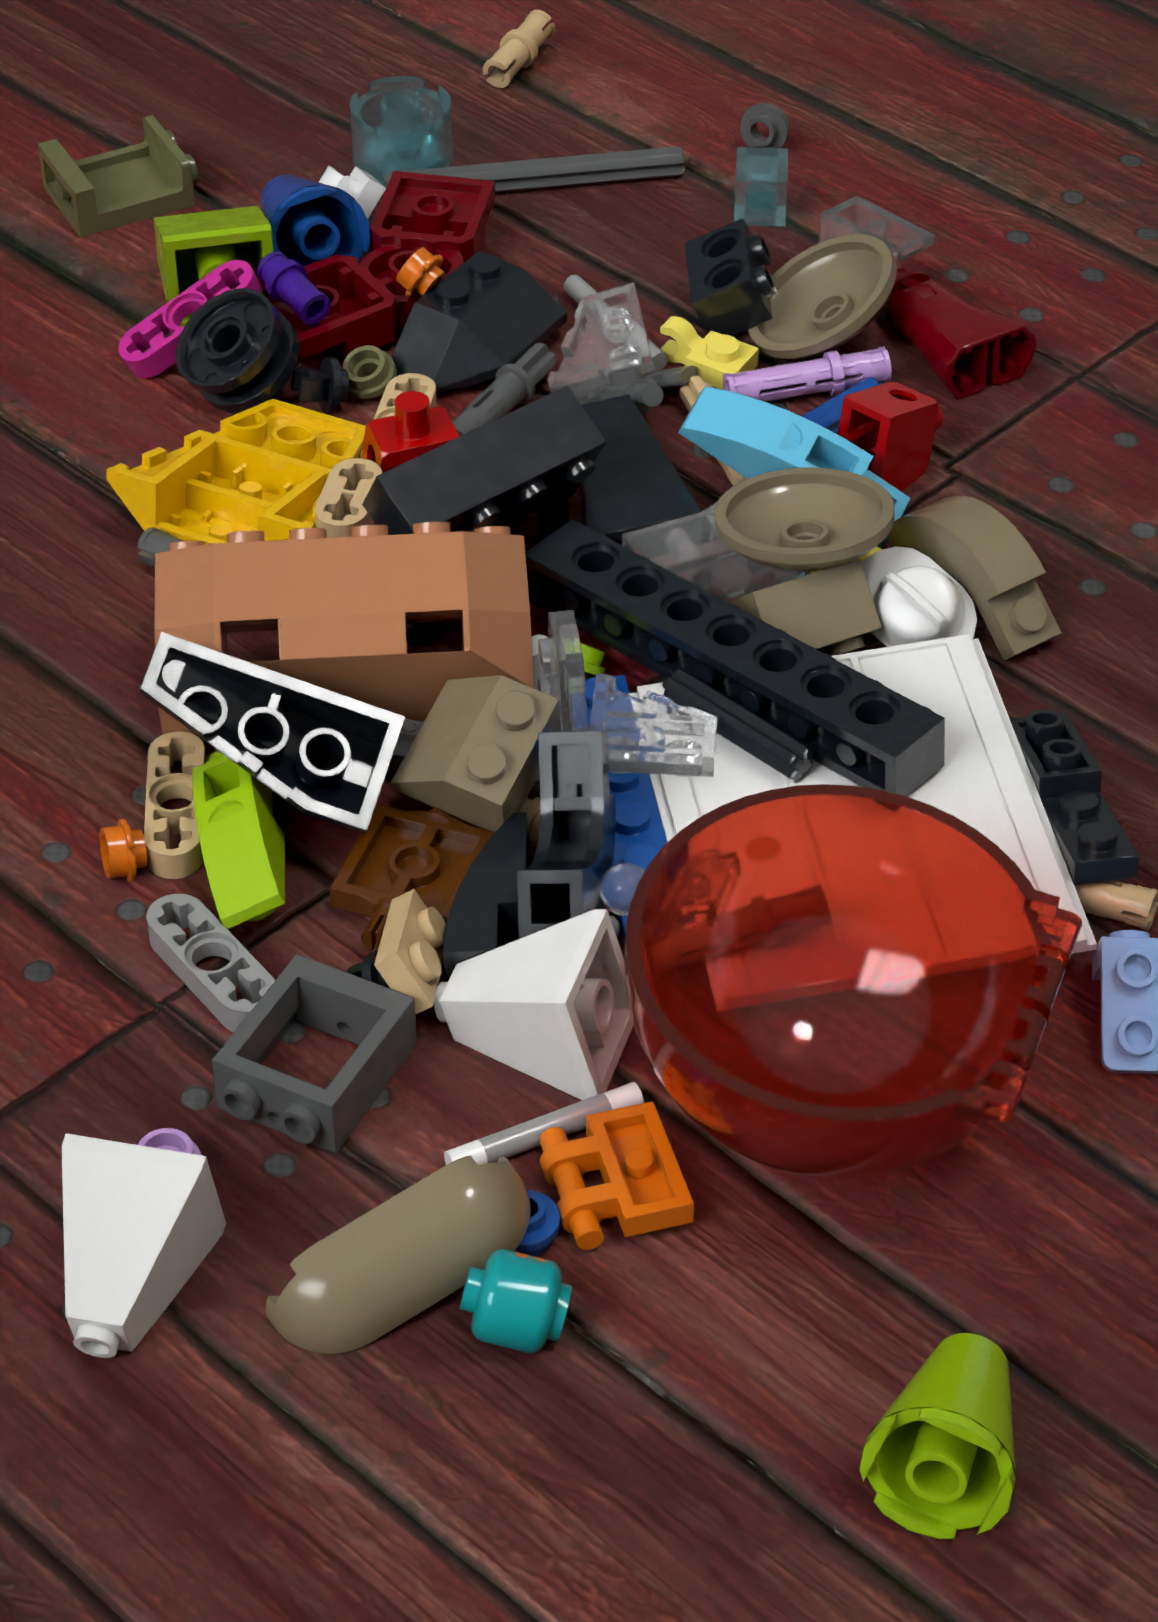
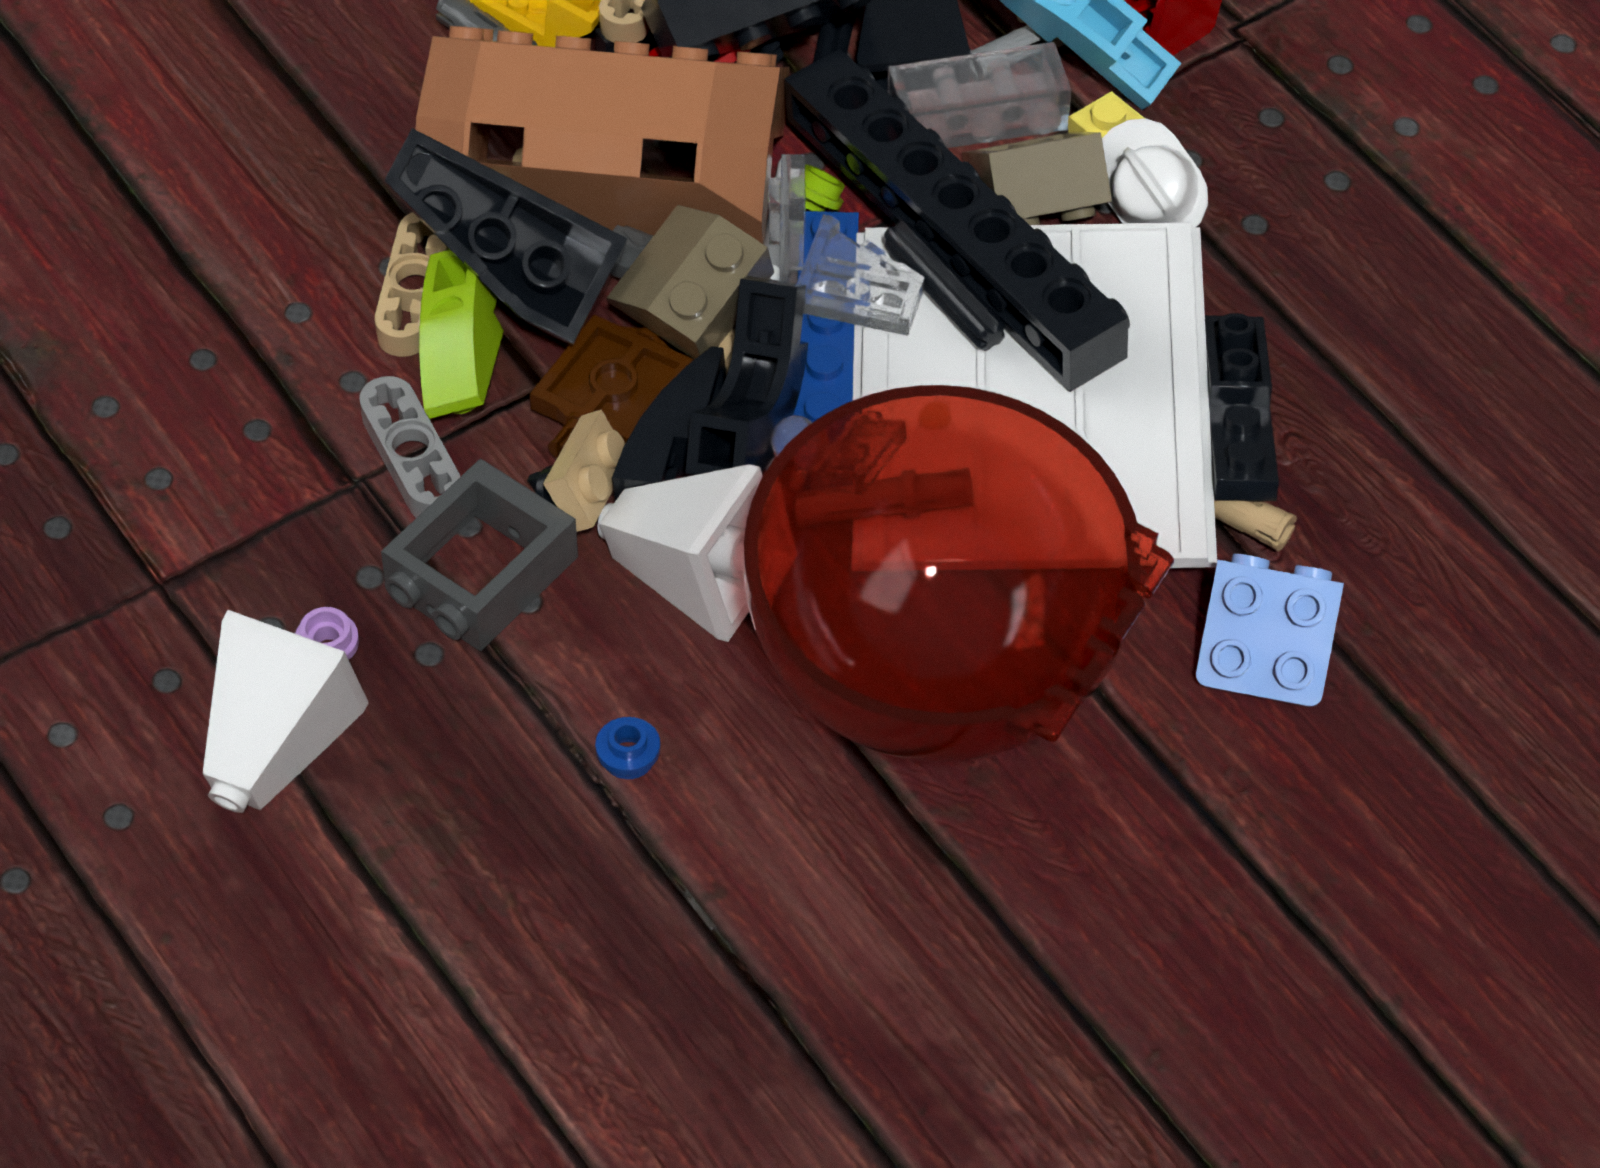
camera: 10 degrees right, 10 degrees up
(122, 850) = (354, 323): orange plate -> none
(401, 1256) = (511, 764): dark tan brick -> none
(516, 1301) = (599, 822): teal head -> none
(526, 1134) = (667, 660): light grey bar -> none
(638, 1174) = (740, 714): orange plate -> none
(804, 518) = (1058, 80): dark tan dish -> none
(947, 1443) = (941, 1016): lime cone -> none
(990, 562) = (1231, 149): dark tan arch -> none

